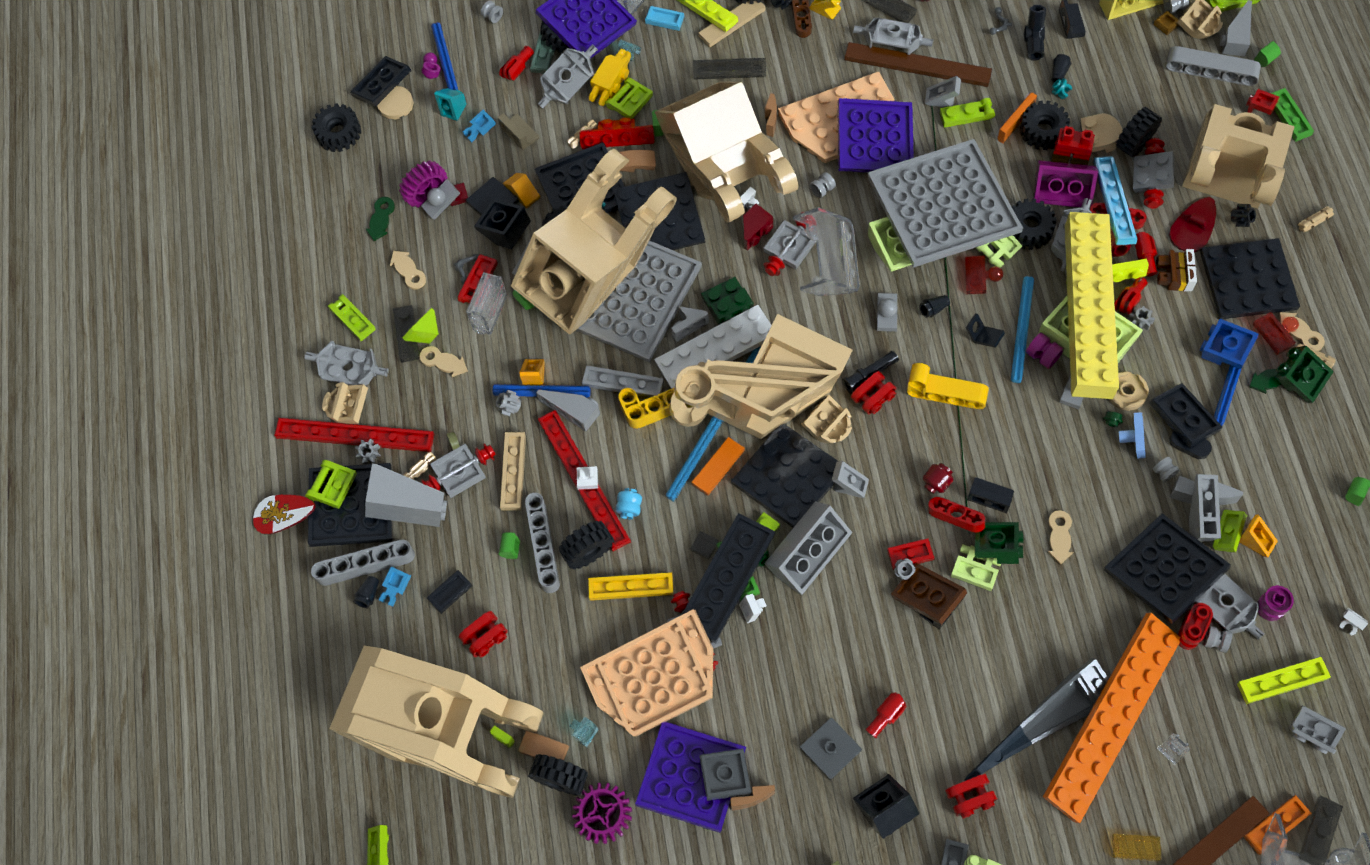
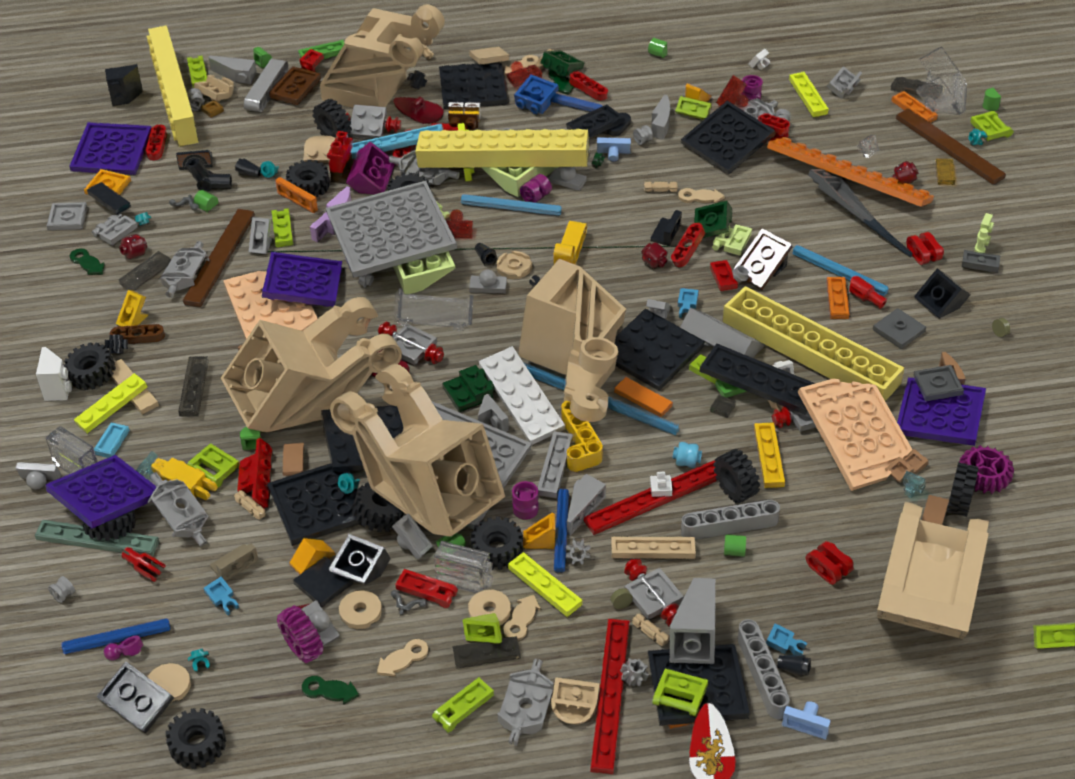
camera: 95 degrees left, 20 degrees down
(303, 597) = (806, 720): none -> light blue tile
(415, 118) = (199, 656): none -> teal plate
(449, 591) = (785, 597): black tile -> none
(450, 103) = (188, 618): teal slope -> none
(450, 324) = (493, 599): none -> tan tile
(454, 224) = (356, 600): none -> tan tile
(474, 377) = (545, 584): none -> neon yellow plate
(523, 321) = (498, 531): none -> black tyre
(571, 354) = (525, 500): none -> magenta wheel
(616, 734) = (913, 462): none -> medium nougat slope
(787, 641) = (810, 342): none -> light yellow brick
(865, 514) = (687, 299): none -> dark azure plate
(881, 682) = (837, 298): none -> orange tile
(921, 336) = (514, 265): none -> tan tile
(929, 689) = (836, 268): none -> dark azure axle
(983, 334) = (517, 223): black bracket -> none
(997, 157) = (323, 225): none -> lavender slope
(1004, 38) = (205, 200): none -> bright green brick
(1070, 490) = (660, 186): none -> tan axle
(1117, 788) = (905, 172): none -> dark red head
(1205, 509) = (683, 112): light grey slope -> none
(1212, 89) = (295, 85): none -> reddish brown plate
(1257, 575) = (732, 93): none -> clear red plate
(1272, 405) = (588, 86): none -> red beam
(1307, 290) = (489, 55): none -> tan tile

